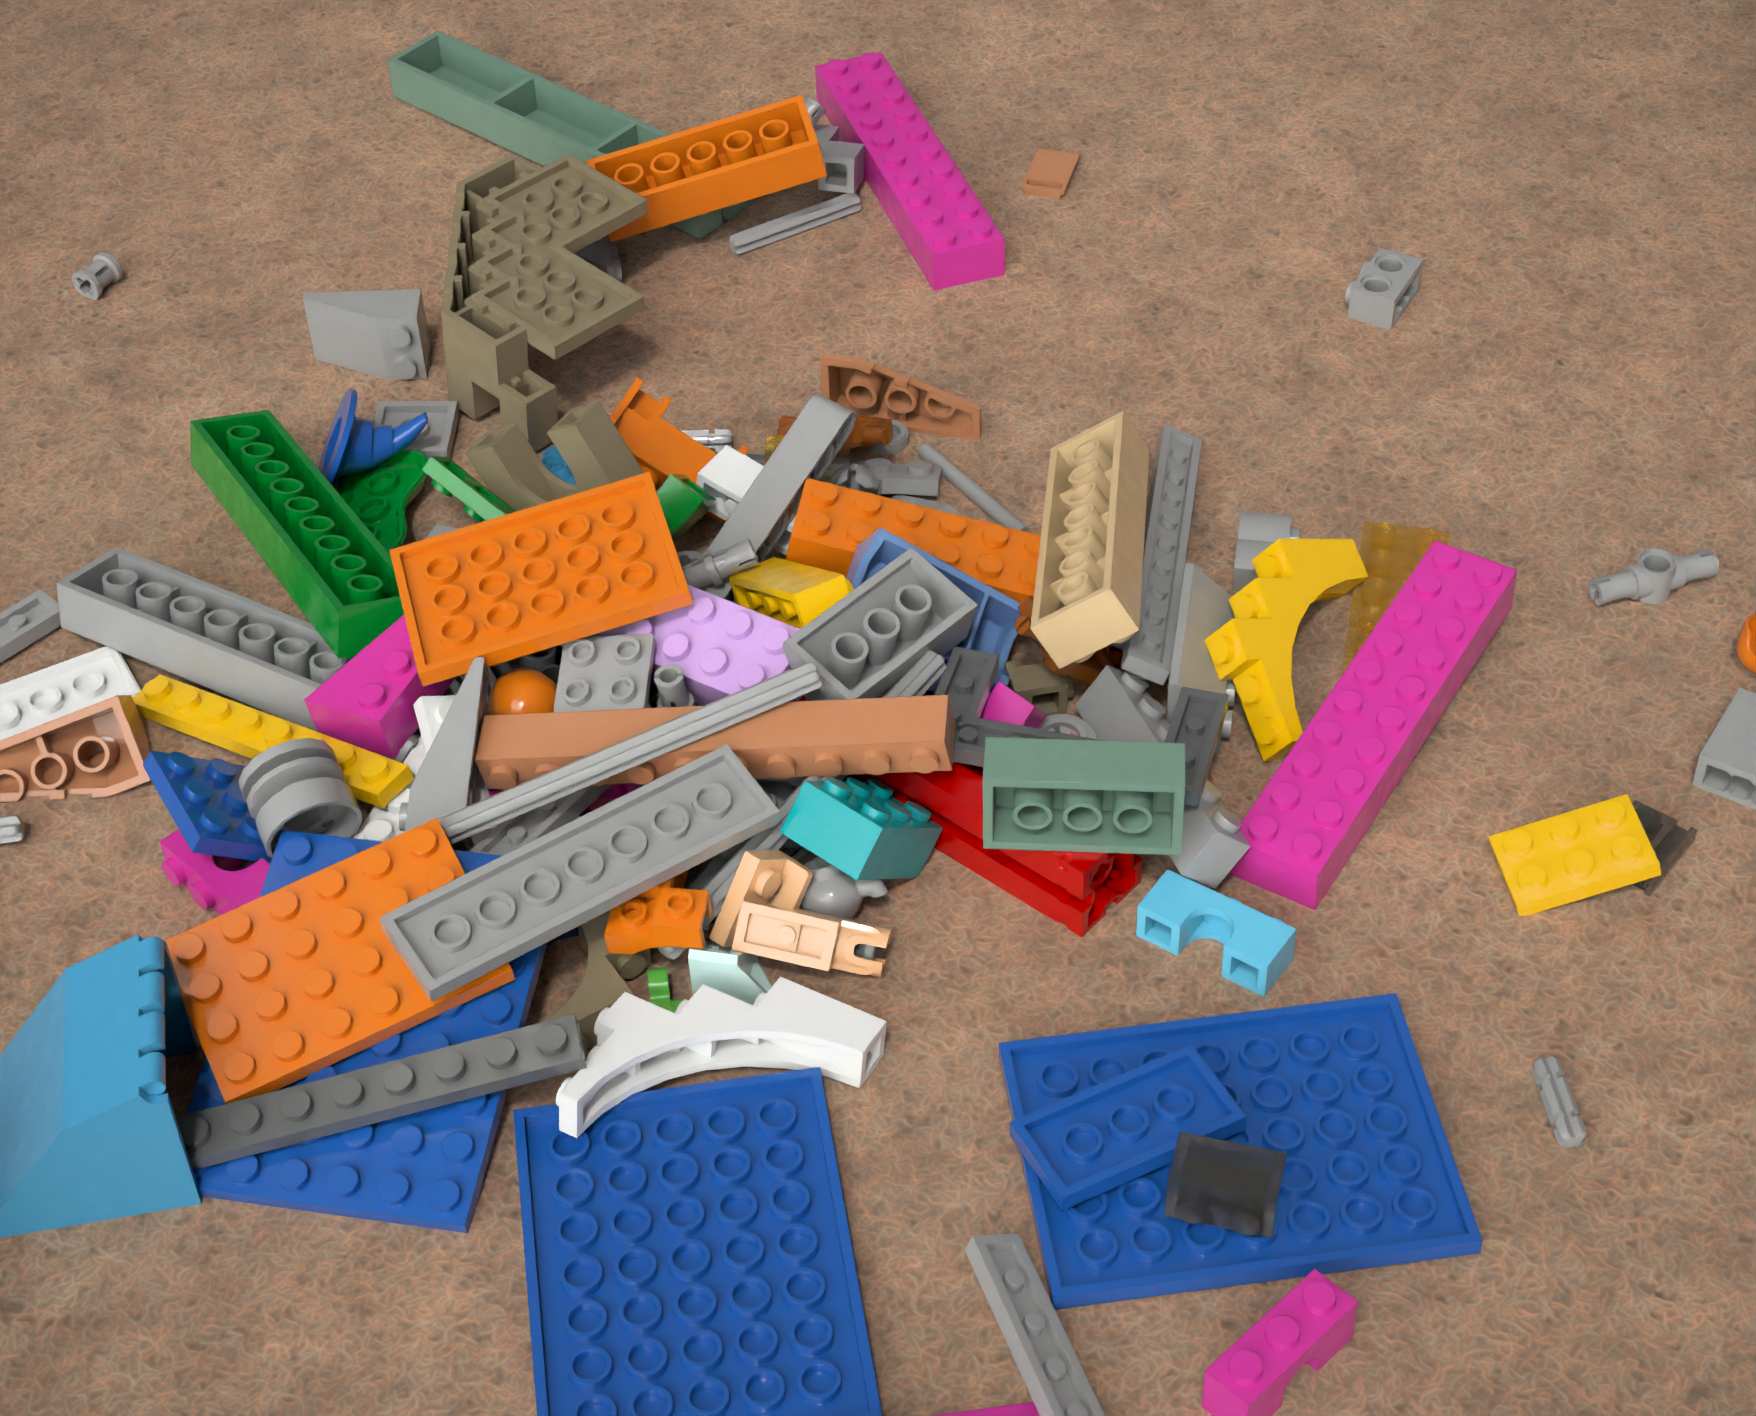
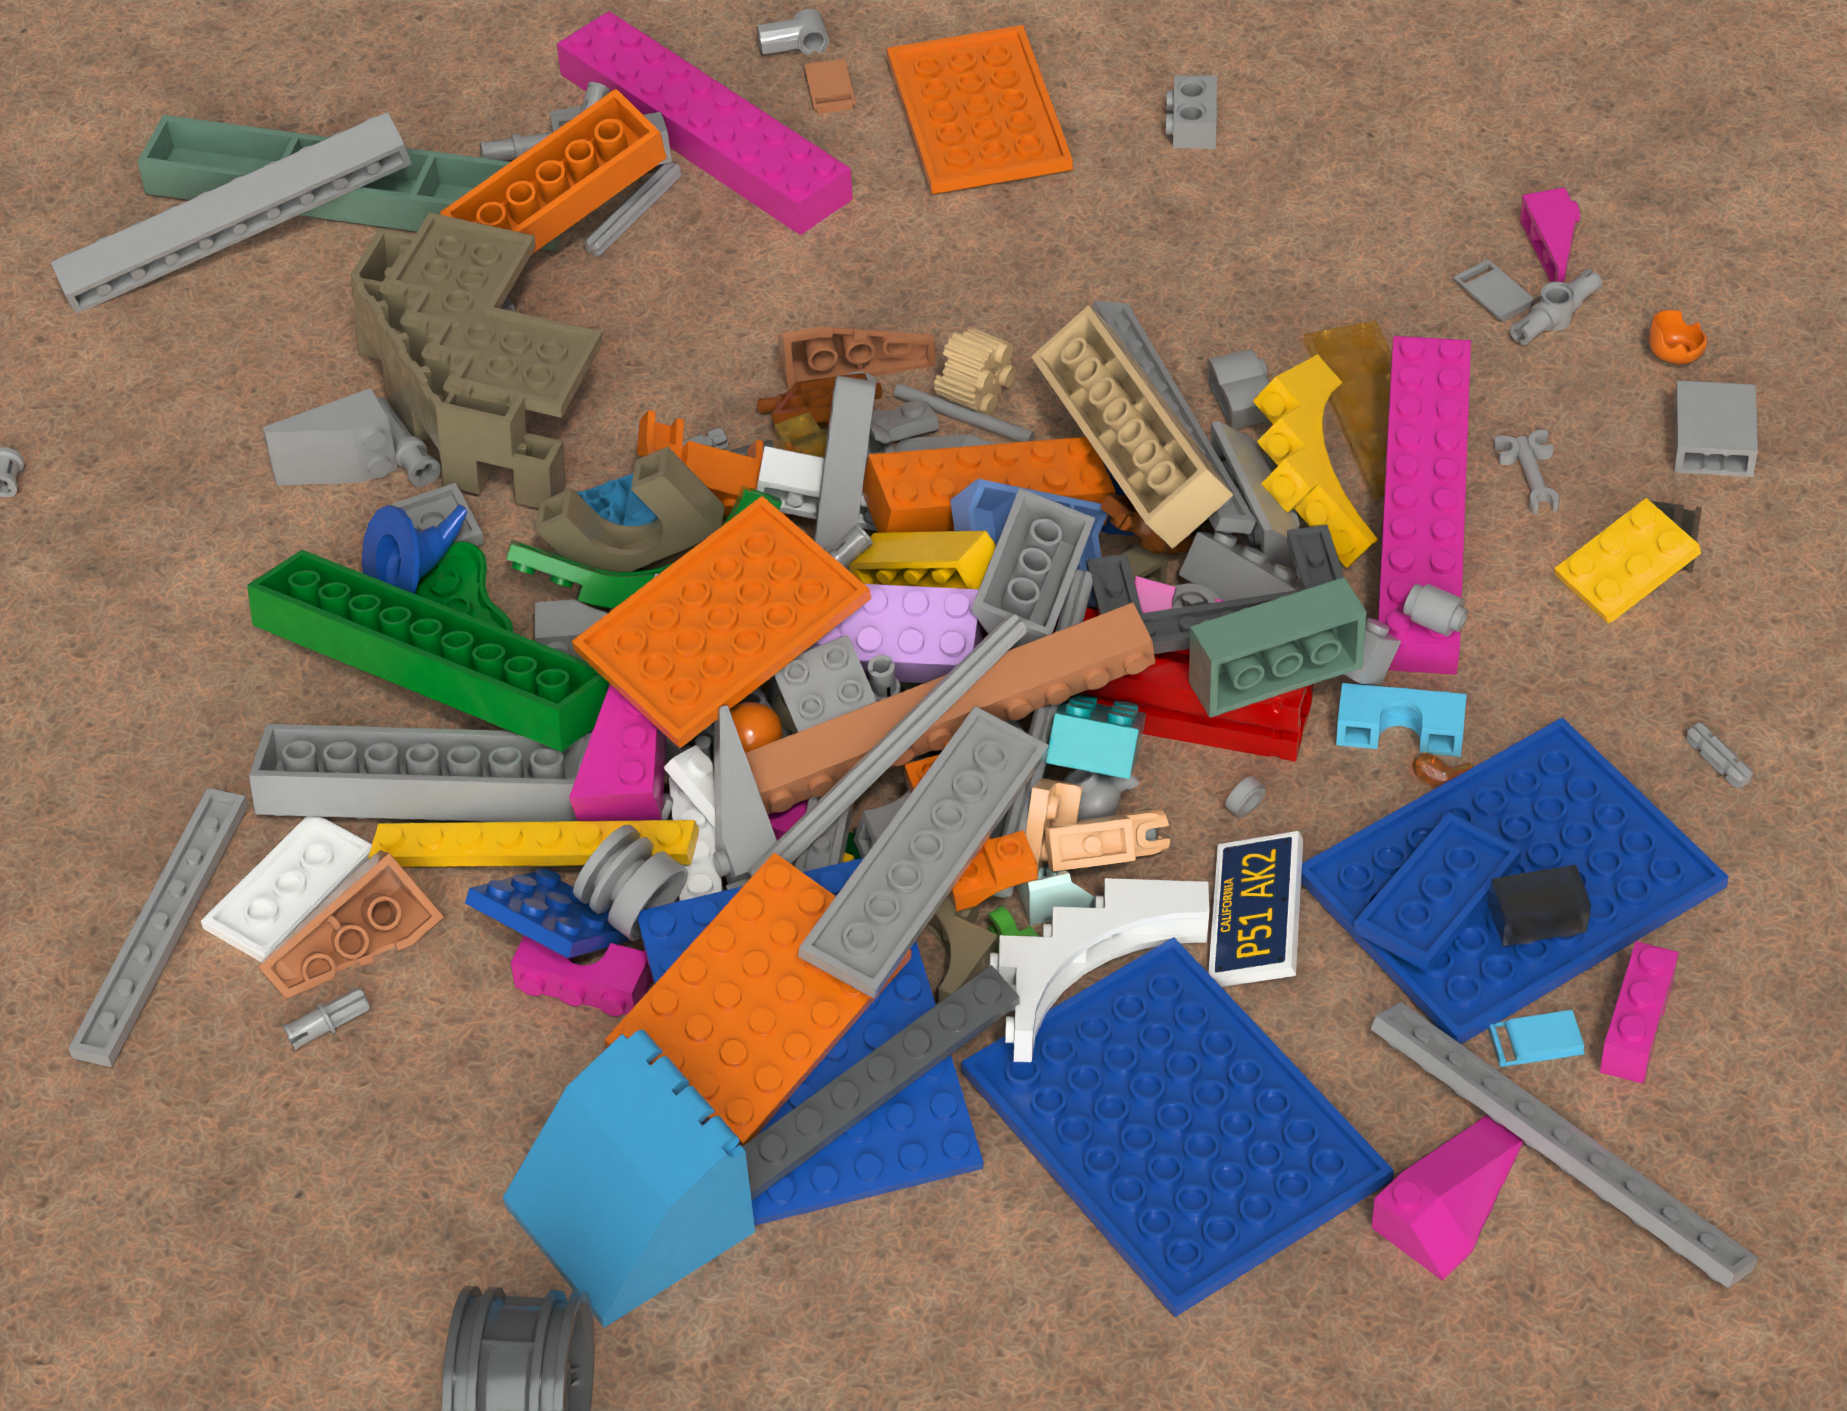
camera: 25 degrees left, 5 degrees up
(432, 120) = (231, 213): none -> light grey brick
(434, 362) = (411, 451): none -> light grey pin
(926, 1073) = (1256, 909): none -> tile
(996, 951) = (1245, 796): none -> light grey tile
(999, 449) = (975, 370): none -> tan brick
(1043, 120) = (803, 32): none -> light grey piece
(1154, 1338) = (1539, 1038): none -> medium azure piece
(1174, 230) = (978, 109): none -> orange plate
(1220, 999) = (1435, 771): none -> clear orange arm
(1302, 824) = (1436, 609): none -> light grey brick
(1532, 708) = (1527, 450): none -> light grey bar
(1598, 545) = (1495, 291): none -> light grey piece
(1697, 501) = (1550, 227): none -> dark pink slope

